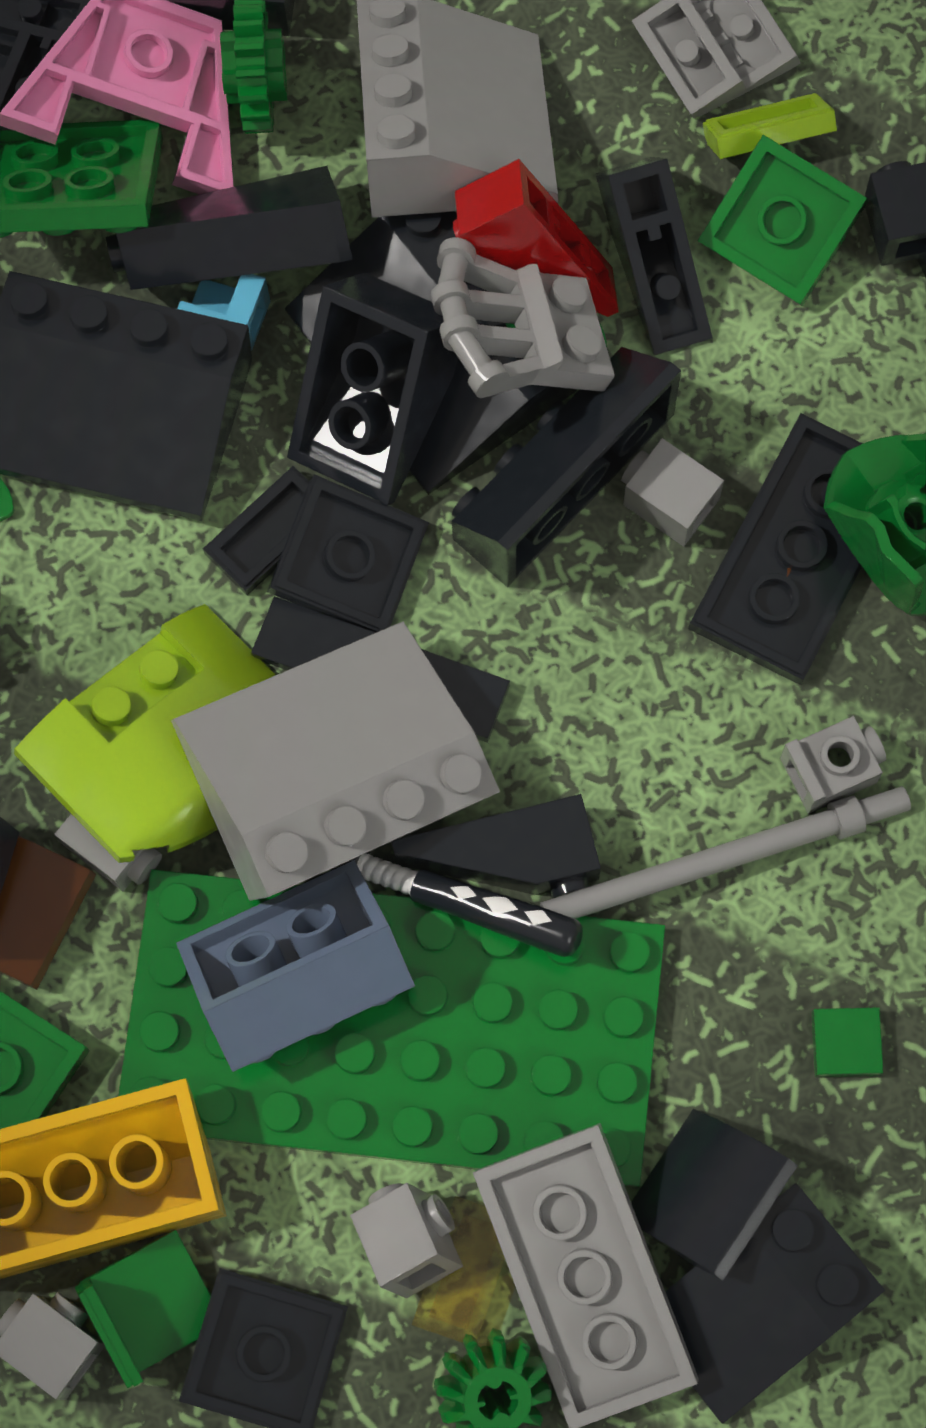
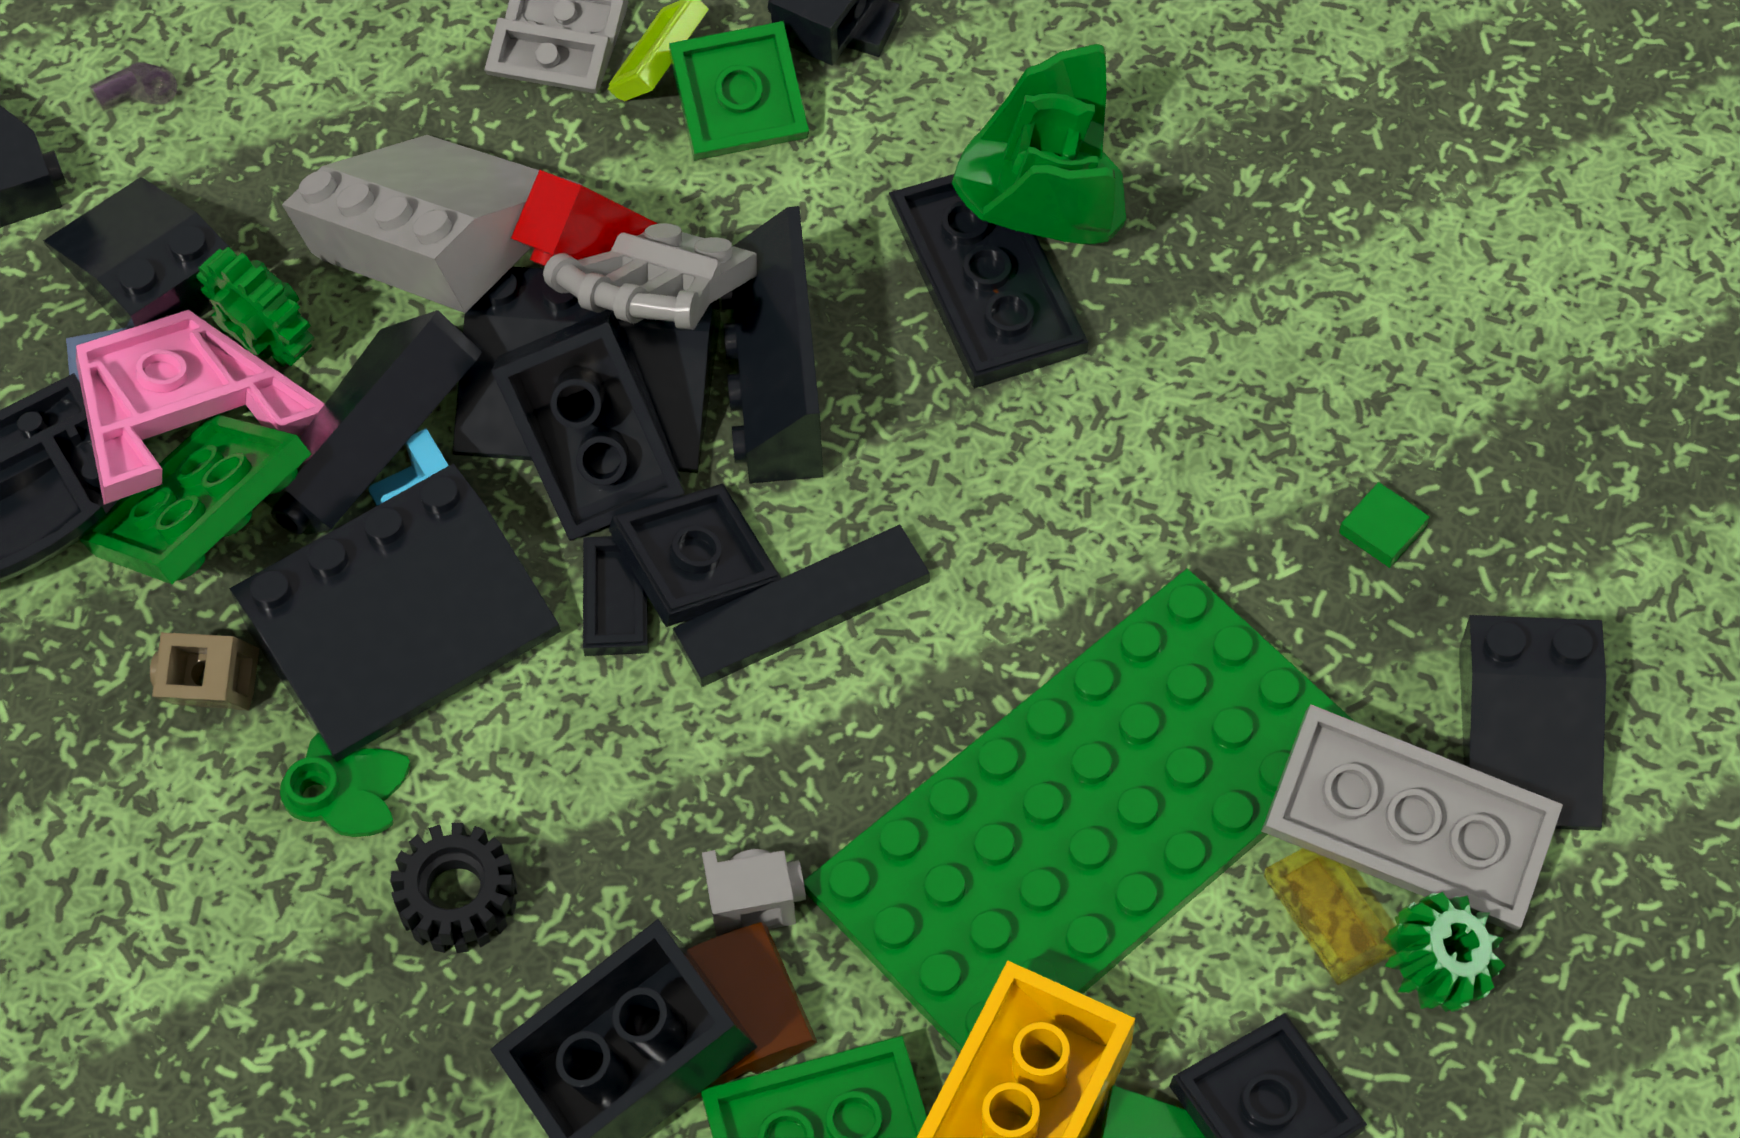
camera: 50 degrees left, 15 degrees down
(114, 744) = (715, 782): lime slope -> none
(294, 966) = (987, 821): sand blue slope -> none
(333, 760) = (855, 669): light grey slope -> none
(407, 1238) = (1272, 917): light grey brick -> none
(482, 907) = (1058, 667): black piece -> none
(518, 850) = (1037, 618): black slope -> none
(655, 252) = (670, 181): black slope -> none
(671, 490) = (864, 310): light grey brick -> none
(710, 1192) = (1425, 679): black slope -> none
(820, 780) = (1169, 370): light grey brick -> none
(842, 818) = (1212, 402): light grey bar -> none

